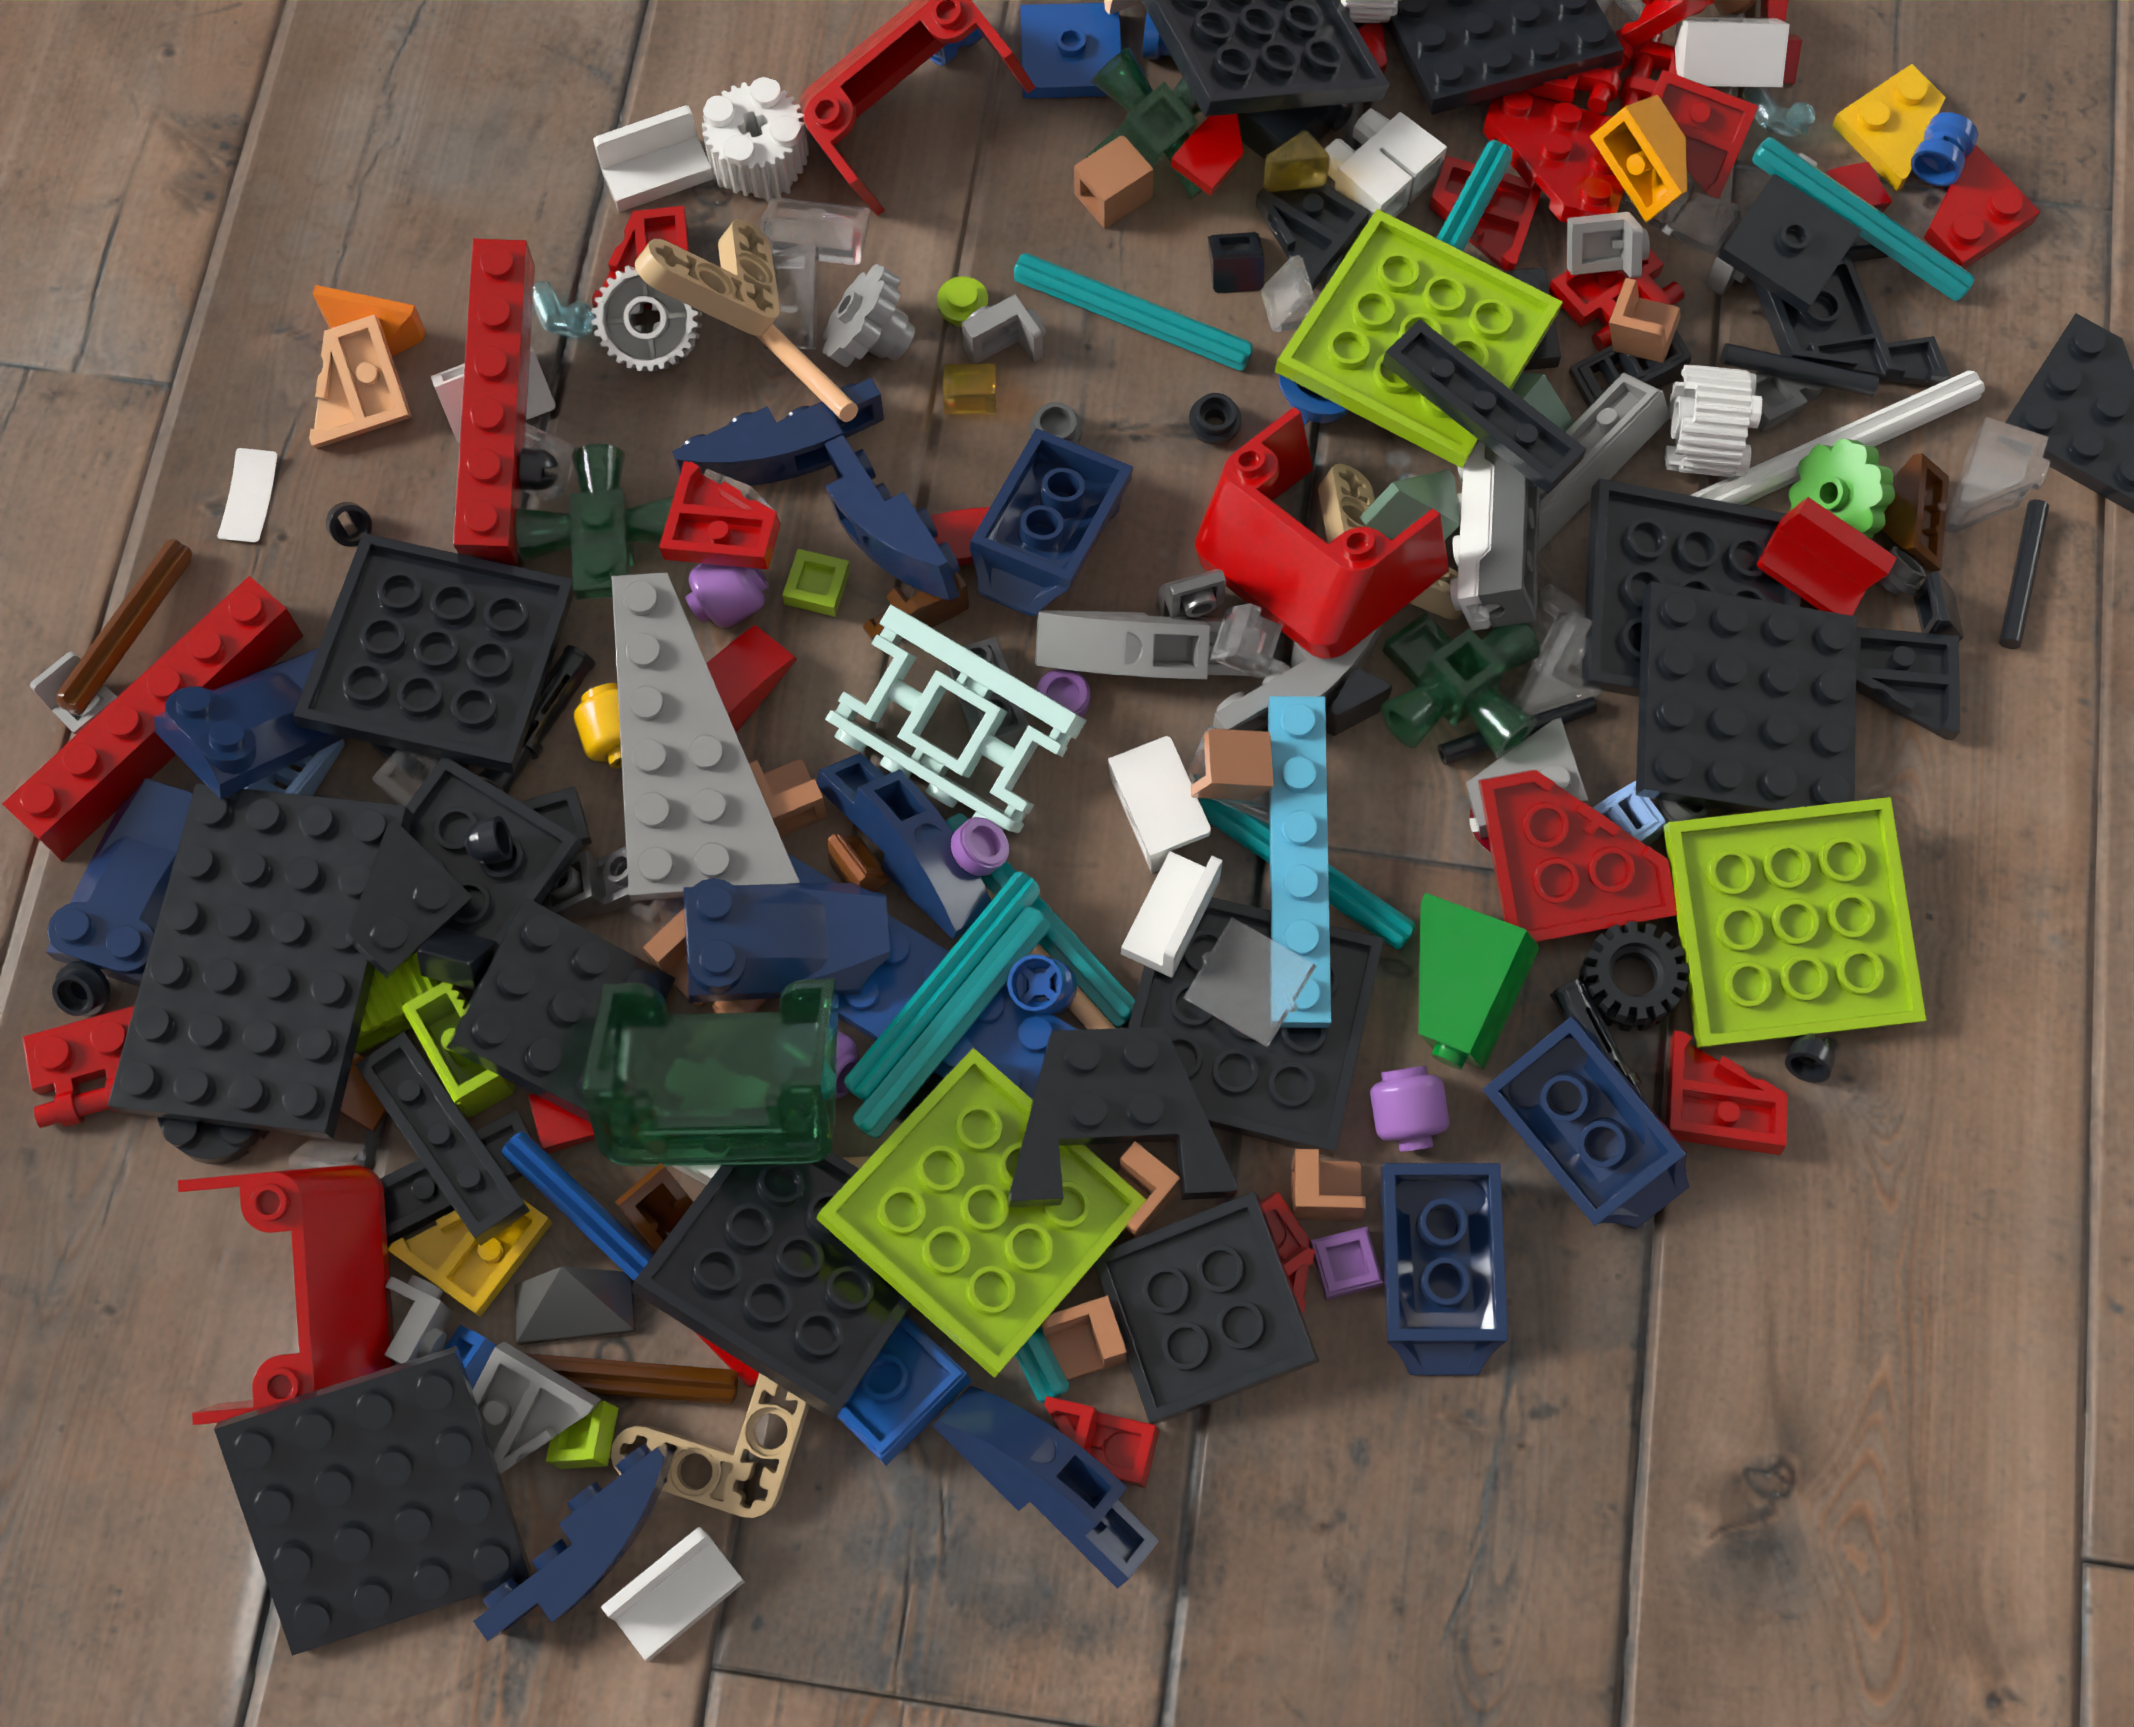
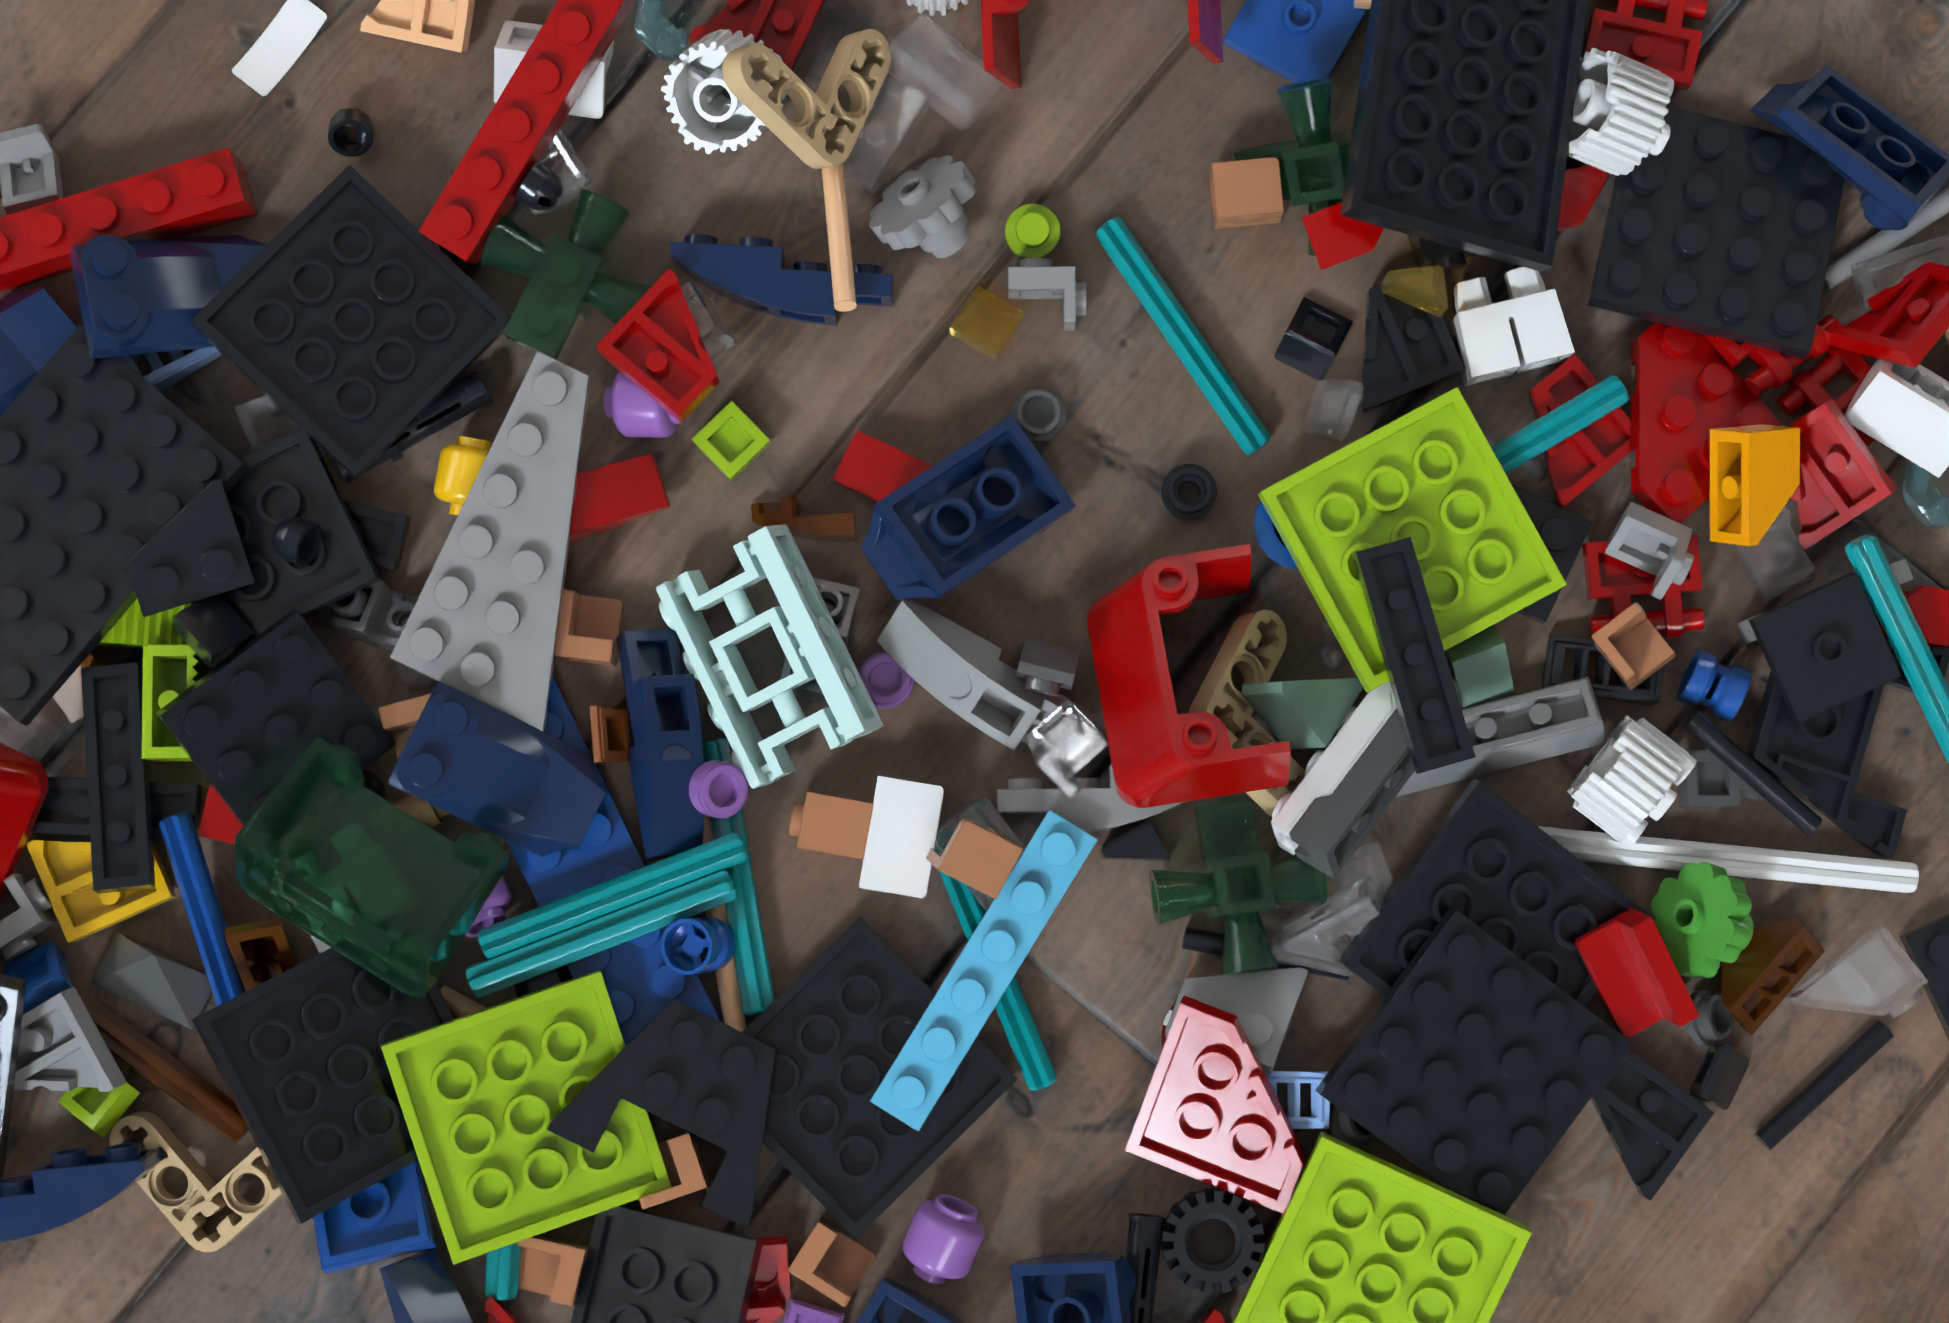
camera: 30 degrees right, 15 degrees up
(123, 627) = (100, 123): reddish brown axle -> none
(673, 1594) = (102, 1272): white panel -> none
(888, 526) = (815, 432): dark blue slope -> none
(1095, 828) = (831, 825): none -> nougat brick
(1171, 913) = (845, 948): white panel -> none
(1250, 982) = (870, 1055): clear piece -> none
(1468, 979) = (1062, 1160): green slope -> none
(1716, 326) = (1714, 685): none -> blue wheel

